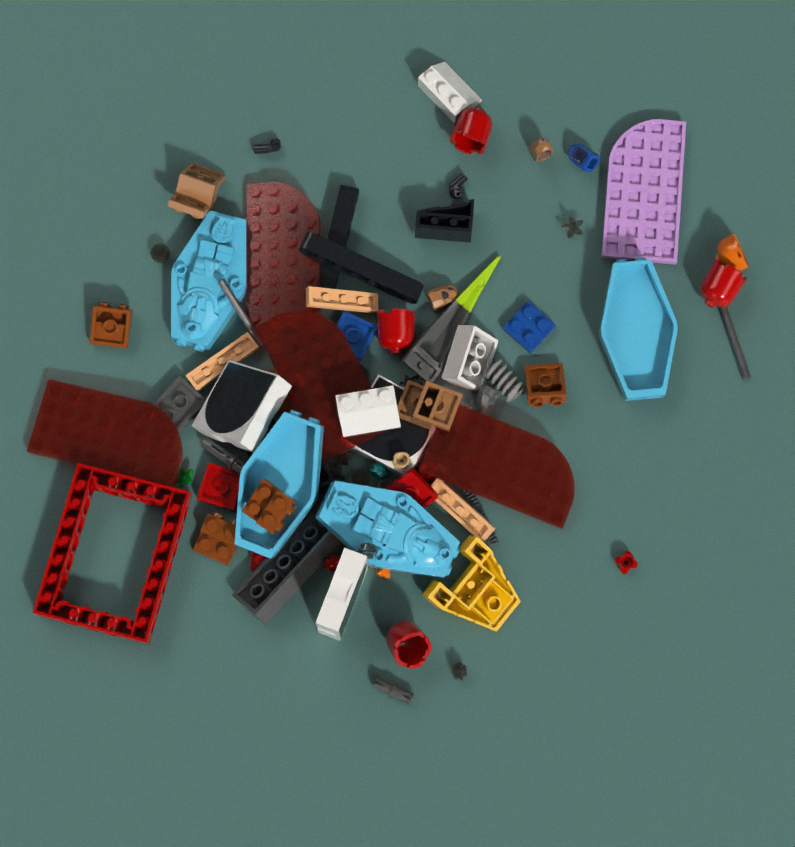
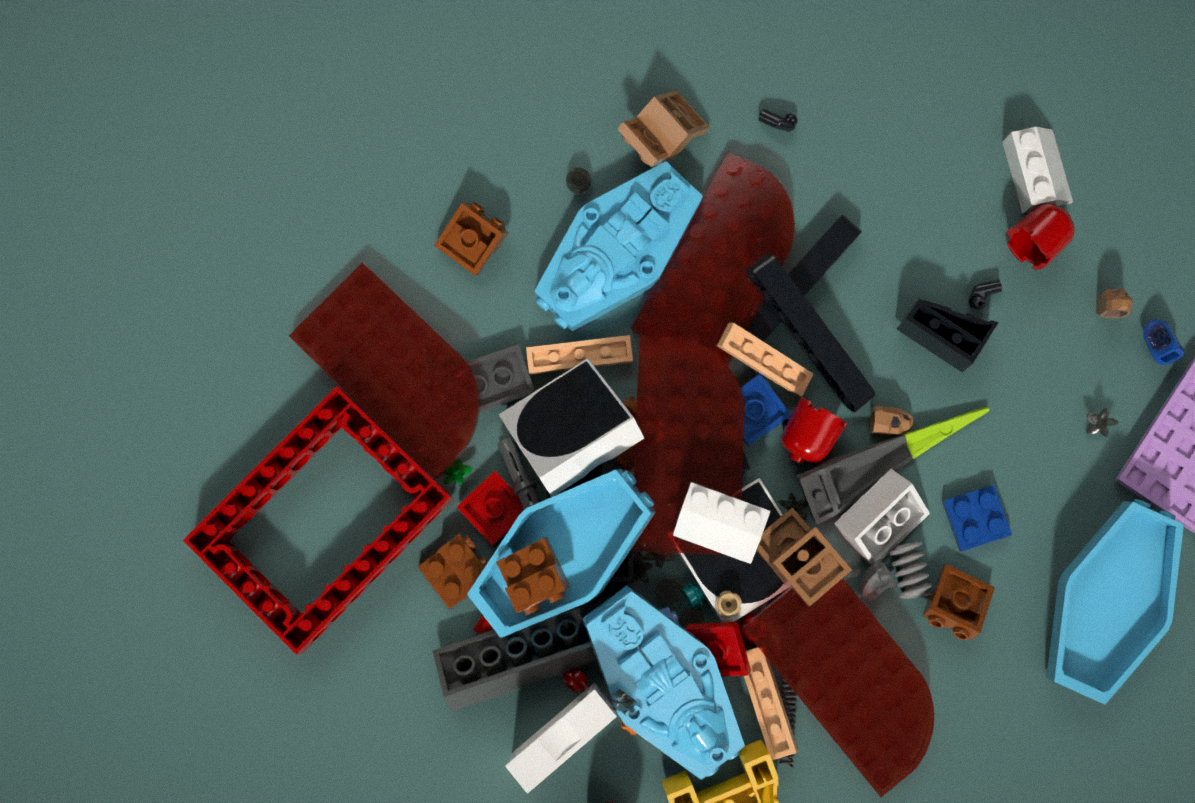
camera: 30 degrees right, 5 degrees up
(240, 311) = (634, 308): flat silver bar -> none

